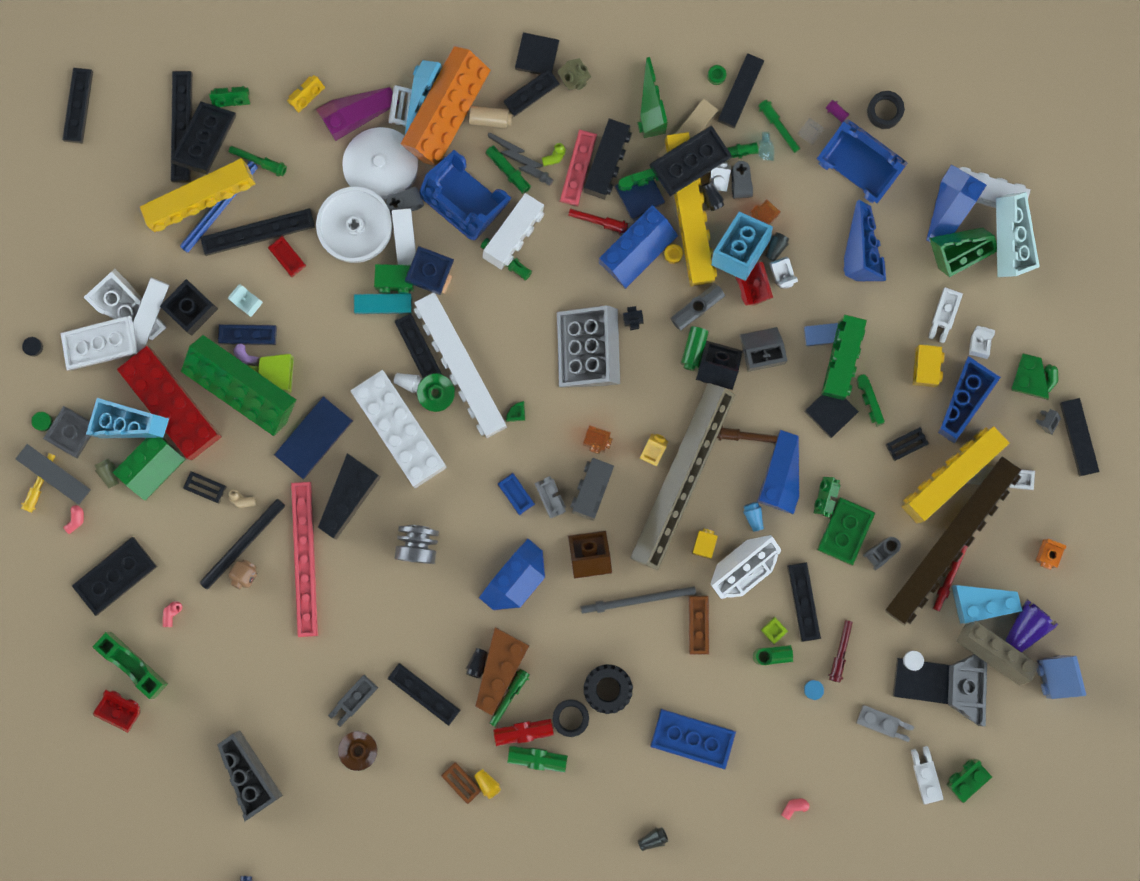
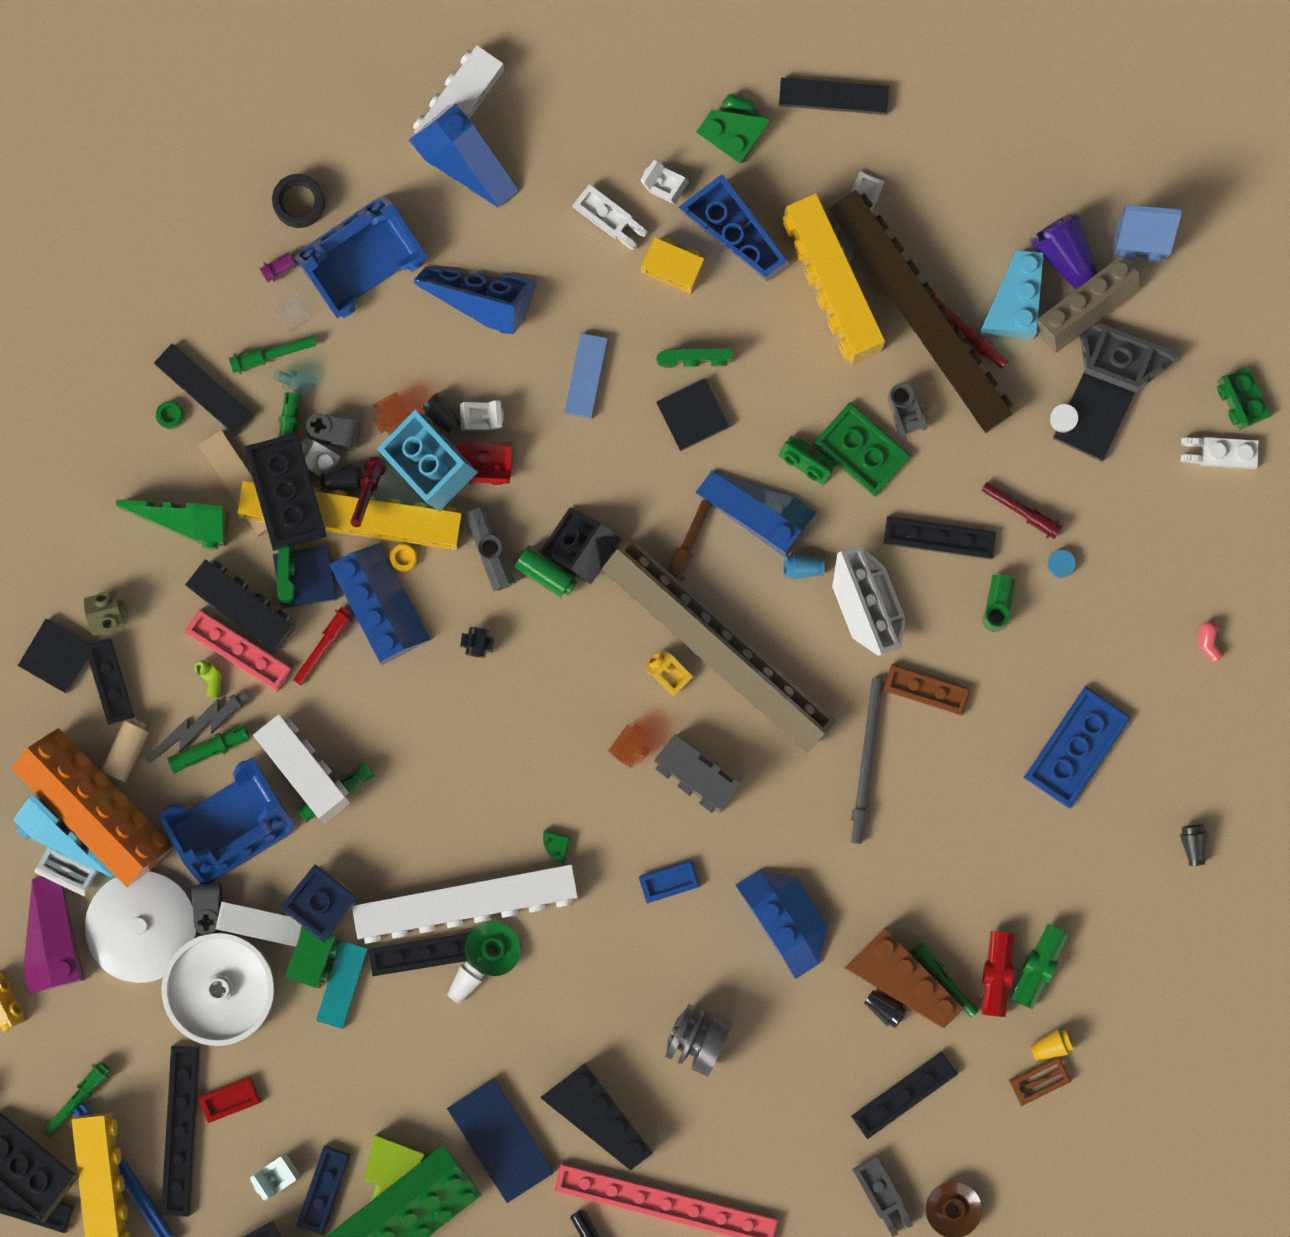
camera: 75 degrees left, 0 degrees up
(240, 353) = (351, 1206): lavender arm -> none
(398, 429) = (527, 1016): white brick -> none
(552, 503) = (678, 837): light grey hinge -> none
(585, 720) = (1013, 888): black tyre -> none
(588, 347) = (497, 717): light grey slope -> none
(590, 554) = (784, 806): reddish brown slope -> none
(591, 685) = (999, 835): black tyre -> none
(705, 543) = (819, 645): yellow brick -> none
(725, 215) = (375, 468): none -> dark red pin
(763, 349) = (577, 478): dark grey slope -> none
(774, 630) = (965, 590): lime tile -> none
(843, 357) = (626, 374): green wedge -> none
(882, 722) = (1133, 487): light grey hinge -> none
(921, 437) = (766, 306): black tile -> none
(962, 249) = (529, 163): green wedge -> none
(1015, 236) = (536, 88): light aqua wedge -> none
(1043, 555) = (968, 191): orange brick -> none
(1050, 422) = (801, 127): dark grey tile -> none

